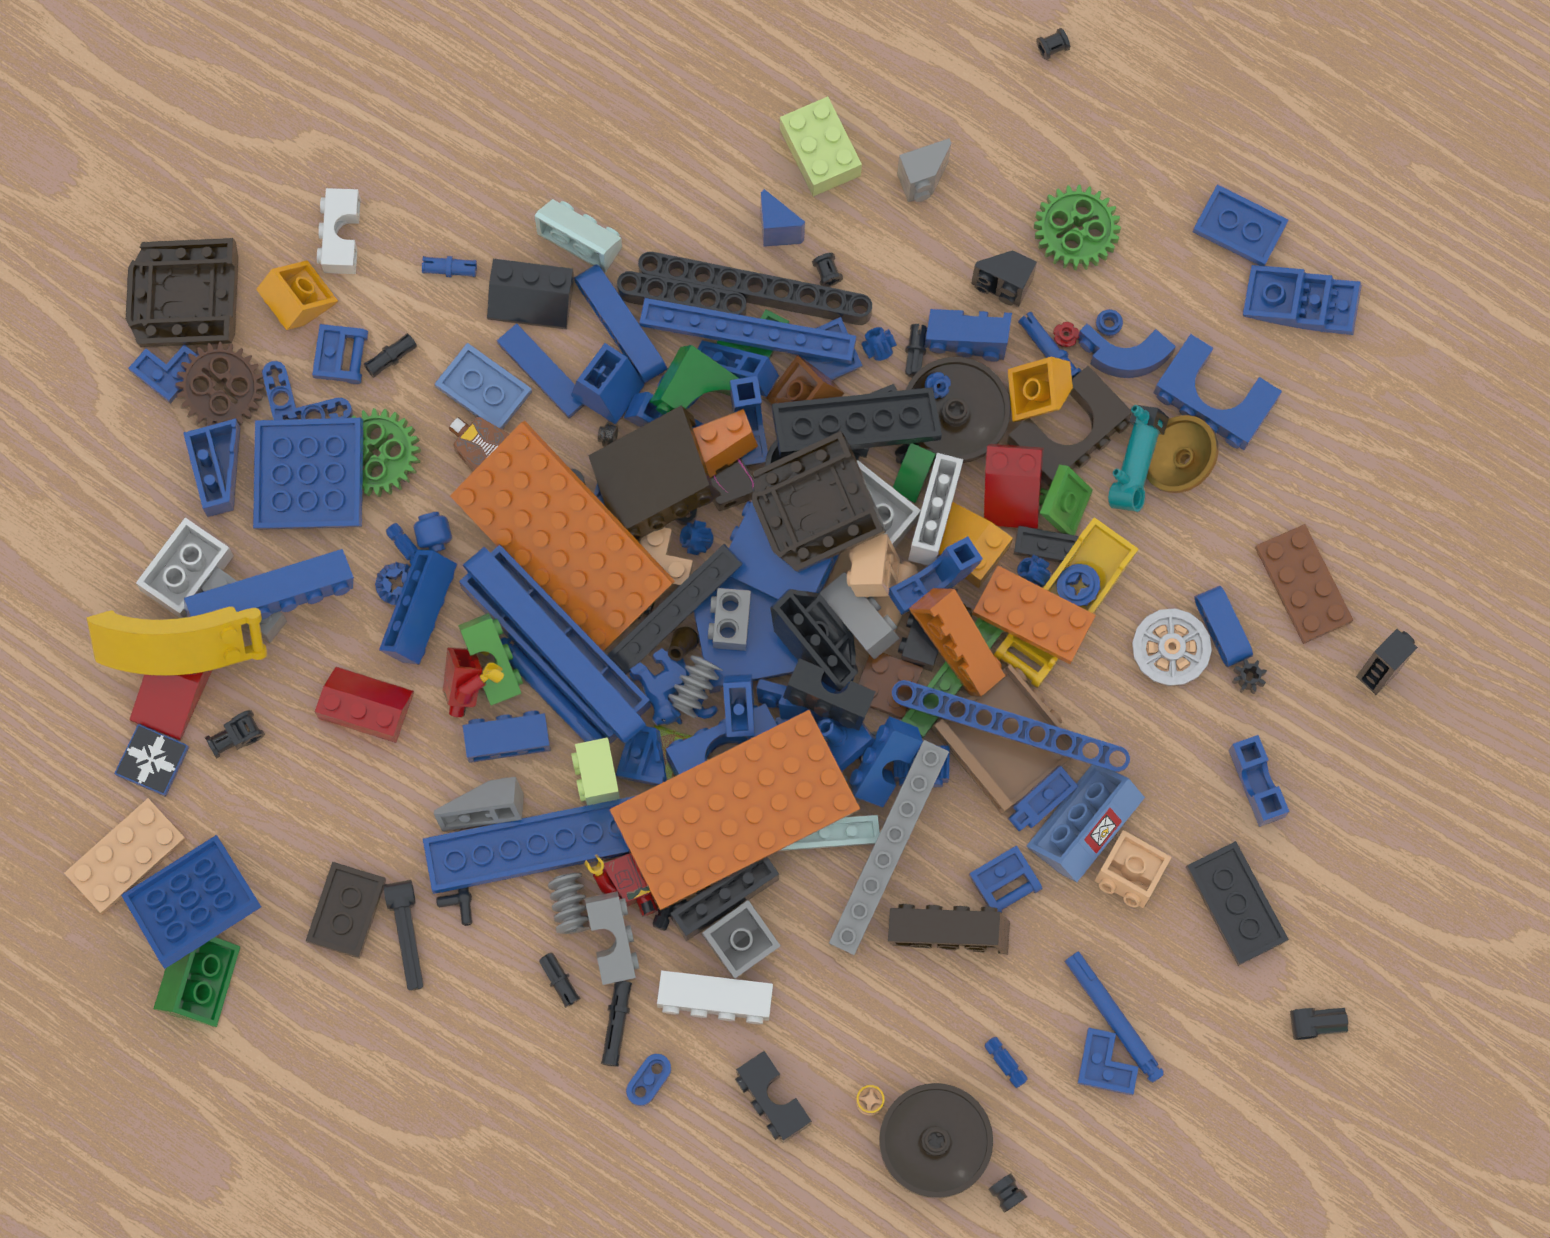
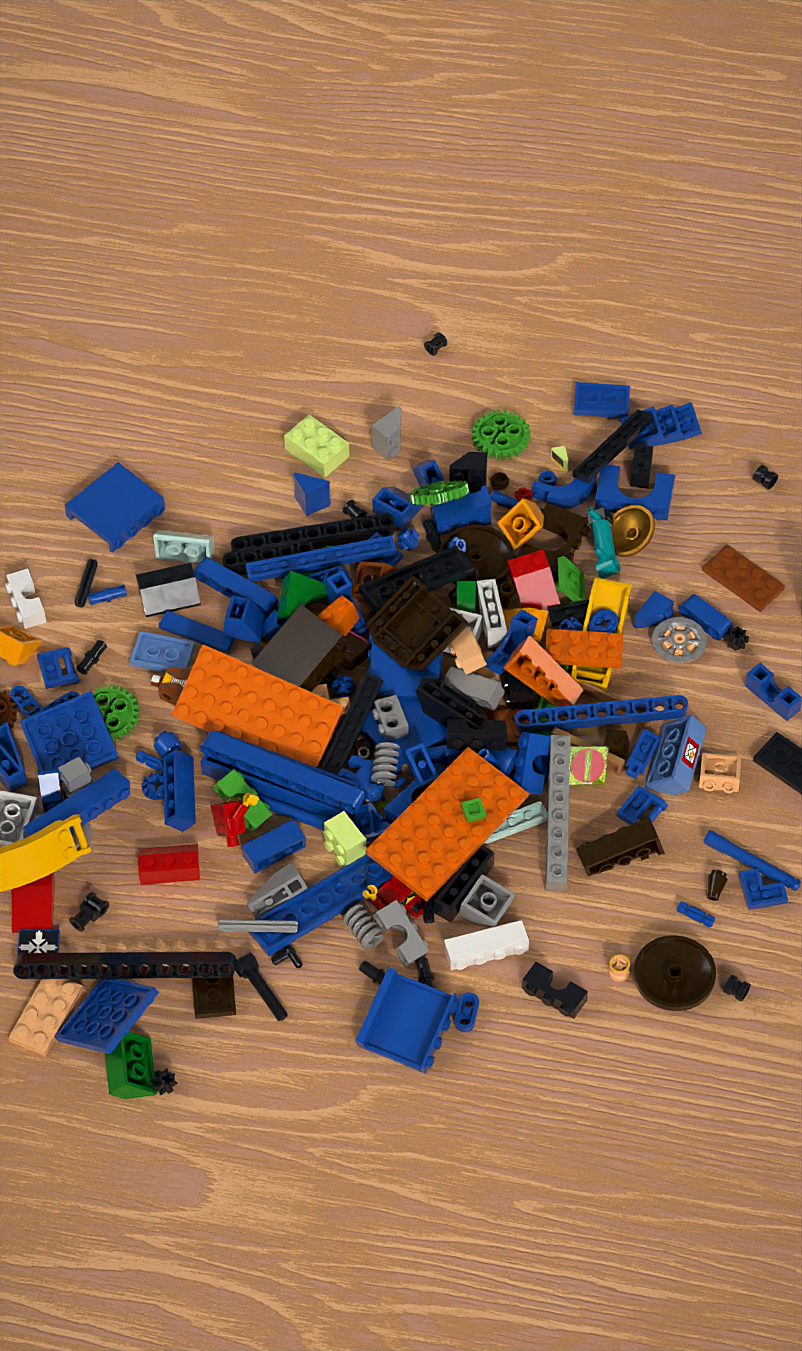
camera: 20 degrees left, 20 degrees down
(232, 1026) = (163, 1081): none -> black gear
(244, 838) = (115, 966): none -> black beam
(253, 542) = (50, 789): none -> slope
(285, 546) = (75, 776): none -> light grey arch
(429, 236) = (86, 583): none -> black axle
(435, 849) = (258, 926): none -> light grey axle
(514, 135) = (116, 506): none -> blue panel
(566, 1064) = (407, 1021): none -> blue panel
(771, 811) = (473, 810): none -> bright green plate
(888, 284) = (397, 503): none -> blue slope
(945, 297) = (438, 492): none -> bright green gear
(950, 260) = (427, 472): none -> blue slope
(960, 791) = (588, 765): none -> piece
(973, 480) = (506, 593): none -> dark brown cone
(1013, 775) = (617, 743): none -> dark brown brick
(1043, 299) = (499, 481): none -> dark brown plate
(1050, 1032) = (716, 884): none -> dark brown cone
(1142, 294) = (559, 456): none -> yellowish green slope
(1158, 590) = (654, 611): none -> blue slope
(1216, 314) = (612, 446): none -> black plate
(1245, 355) = (641, 466): none -> black brick
(1406, 440) = (764, 476): none -> black wheel

